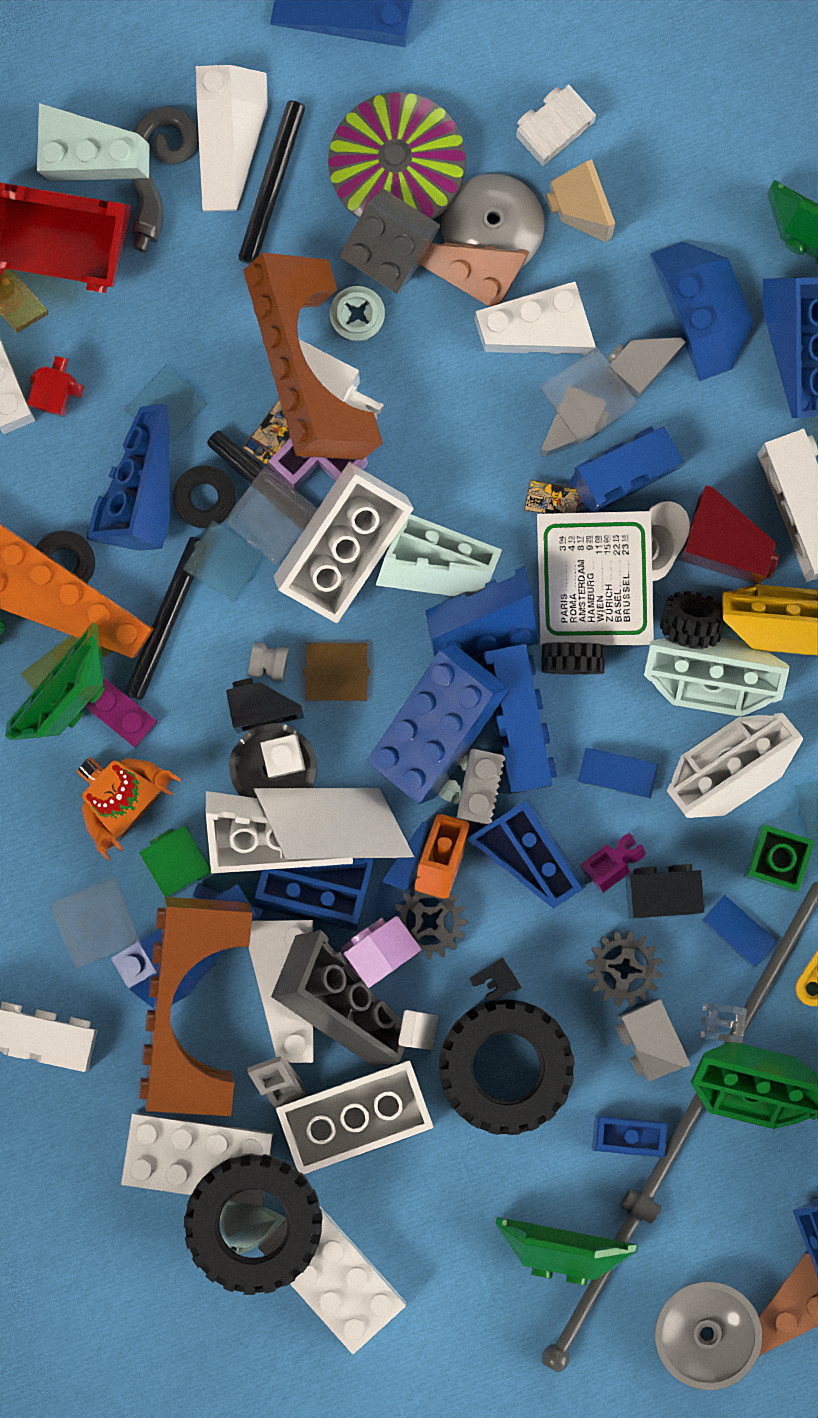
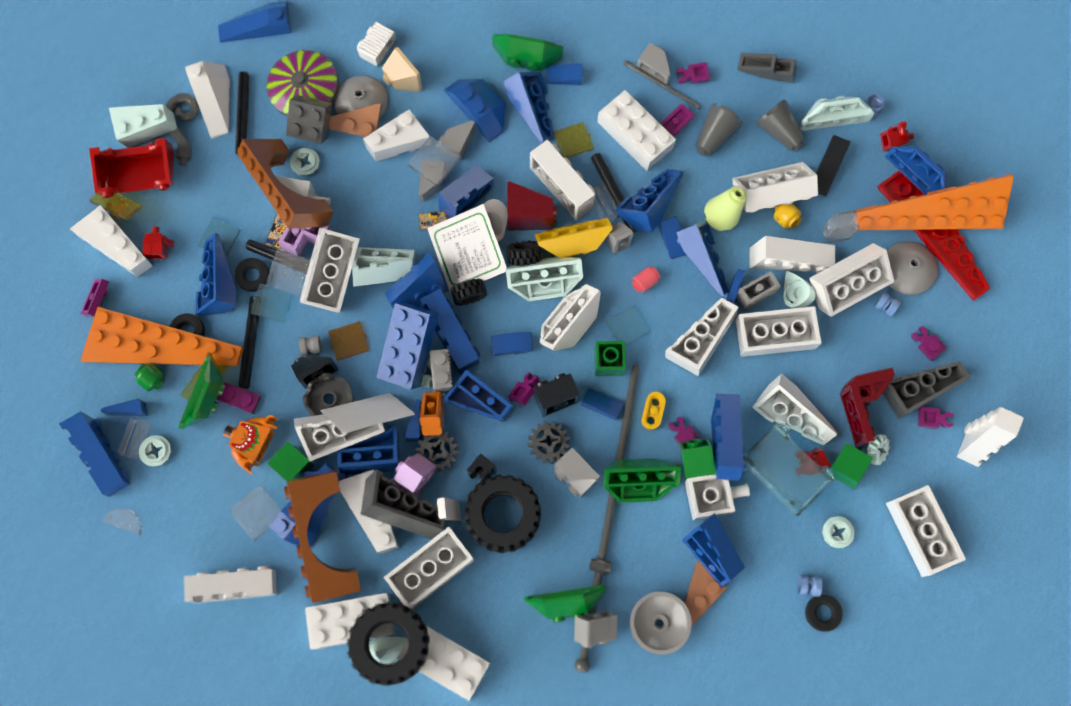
camera: 20 degrees left, 10 degrees down
(277, 1081) = (379, 562): light grey slope -> none
(283, 756) = (330, 388): white brick -> none
(598, 1309) = (595, 628): none -> light grey brick
(629, 1136) = (581, 529): blue slope -> none
(713, 1022) = (606, 461): clear tile -> none

